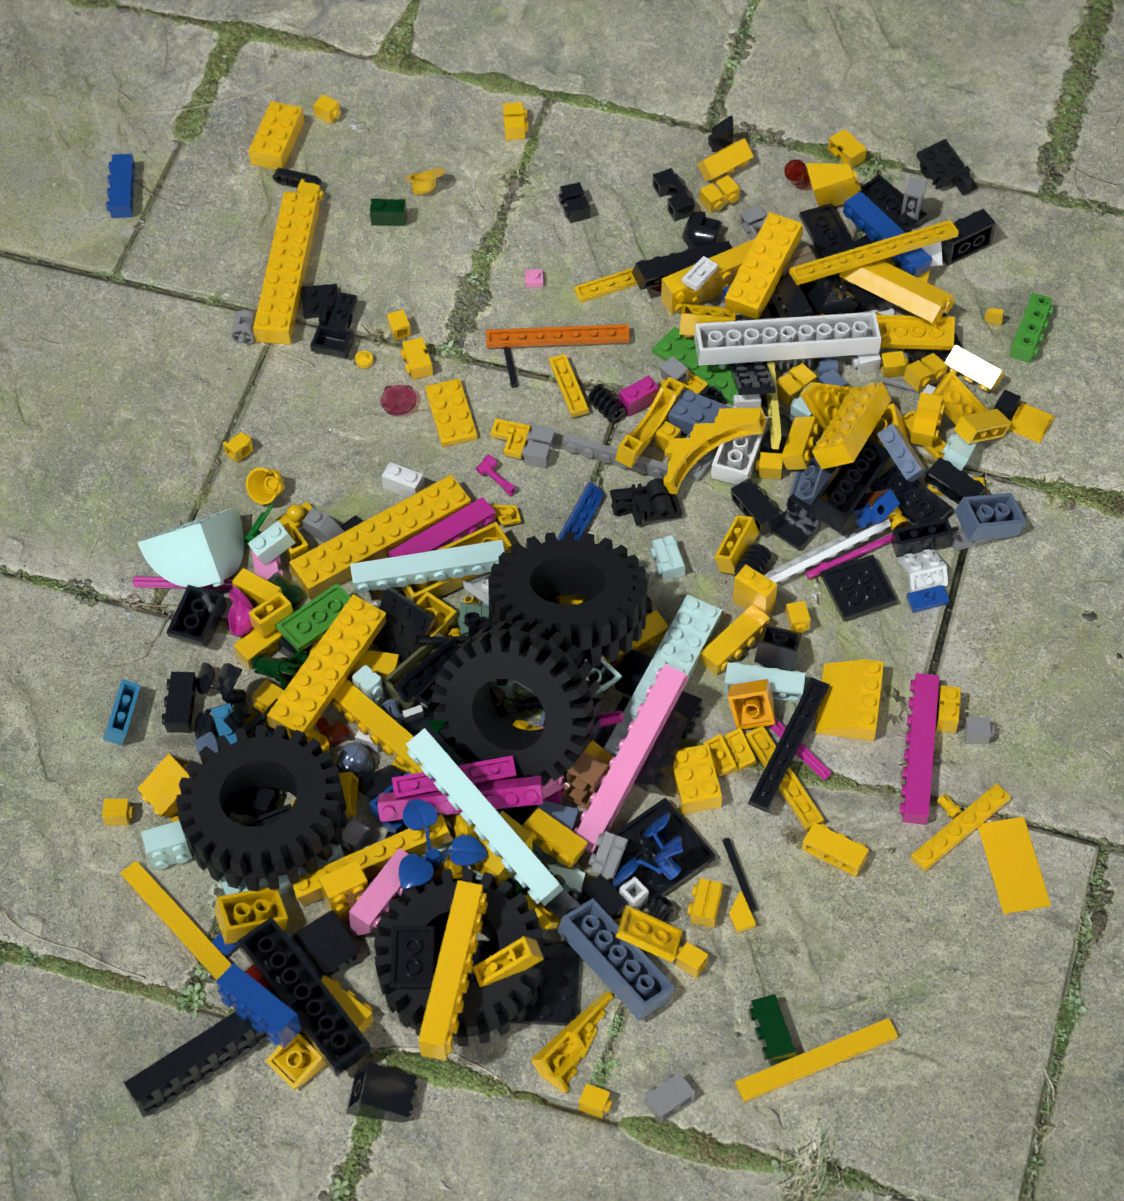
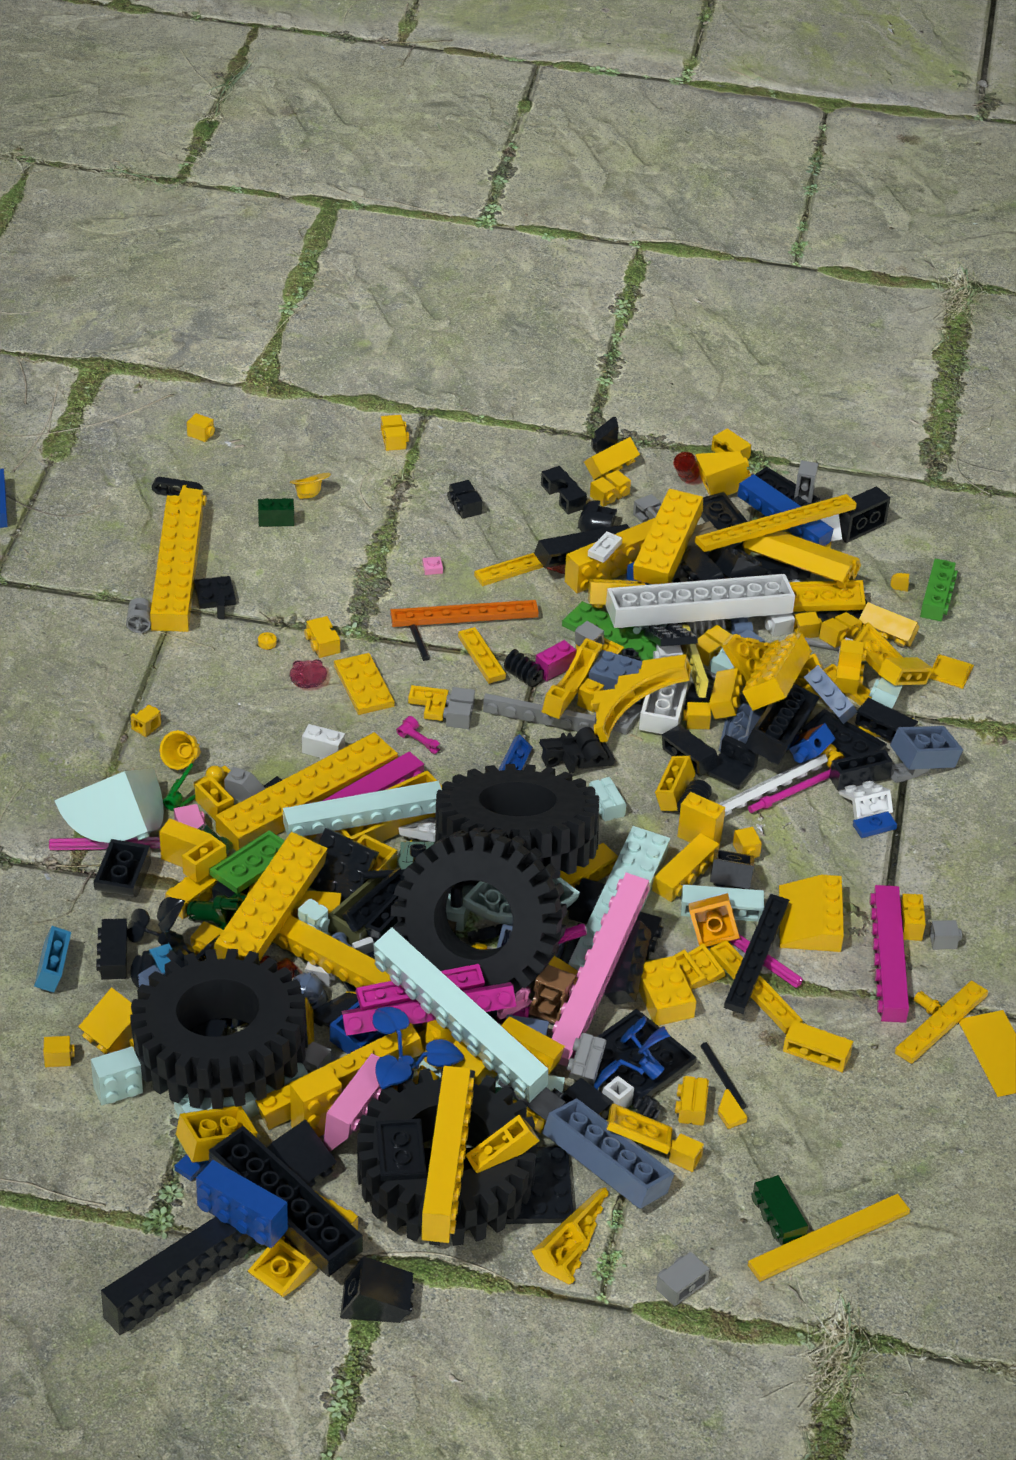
camera: 10 degrees left, 15 degrees down
(176, 920) = (135, 1150): yellow tile -> none
(239, 613) = (169, 864): dark pink hair -> none
(271, 543) = (196, 796): light aqua brick -> none
(276, 135) = (151, 450): yellow brick -> none
(334, 337) = (236, 620): black plate -> none
(398, 325) = (299, 608): yellow brick -> none
(506, 514) = (436, 768): yellow piece -> none
(595, 1101) = (604, 1286): yellow brick -> none
(858, 587) = (803, 817): black plate -> none
(945, 167) = (832, 459): black plate -> none
(1008, 404) = (927, 652): black brick -> none

